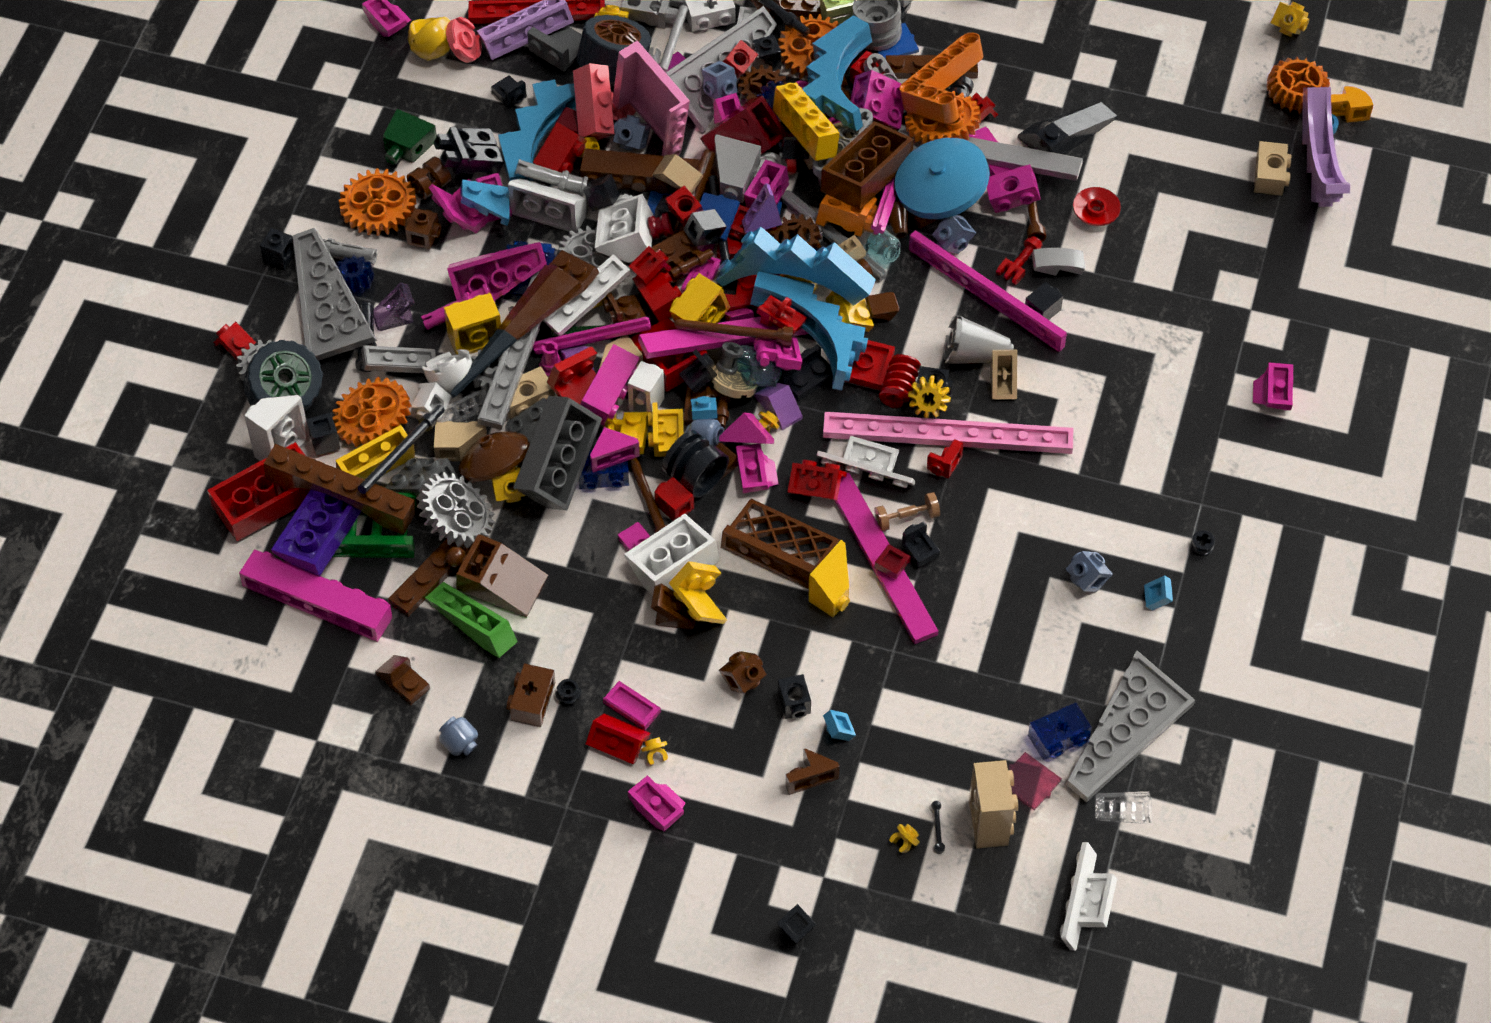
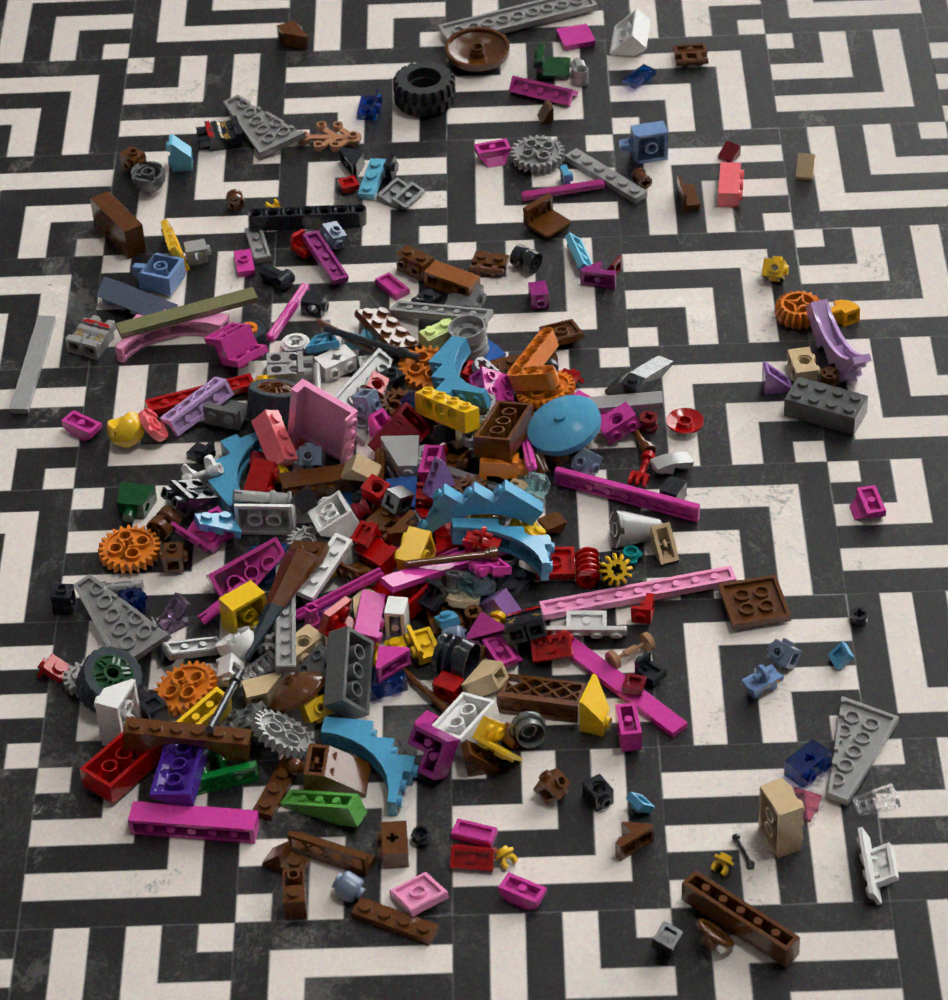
camera: 15 degrees left, 15 degrees down
(392, 727) = (294, 893): none -> reddish brown slope
(457, 682) = (330, 853): none -> reddish brown fence
(496, 796) = (395, 921): none -> reddish brown plate
(508, 121) = (212, 469): none -> white piece
(536, 770) = (418, 894): none -> bright pink tile
(547, 540) = (362, 740): none -> dark azure arch
(624, 583) = (438, 750): none -> magenta brick
(704, 264) = (395, 534): none -> reddish brown slope
(719, 502) = (486, 678): none -> tan slope
(719, 587) = (508, 739): none -> reddish brown arm
(737, 407) = (471, 615): none -> reddish brown bush
(744, 586) = (528, 729): none -> dark grey piece
(793, 440) = (523, 622): none -> black hips
(803, 187) = (459, 461): none -> reddish brown bracket
(852, 936) = (714, 935): none -> reddish brown piece
(863, 618) = (628, 727): none -> dark pink brick
(895, 923) = (741, 918): none -> reddish brown brick
(961, 371) = (632, 553): none -> teal plate
(998, 38) = (566, 331): none -> reddish brown tile
(1048, 199) = (649, 422): none -> dark red wheel
(1049, 600) = (762, 679): none -> medium blue hips
(1082, 486) = (754, 602): none -> reddish brown plate
(1230, 179) = (774, 381): none -> medium lavender slope
(1277, 233) = (825, 405): none -> dark grey brick
(1298, 193) = (829, 376): none -> reddish brown wheel

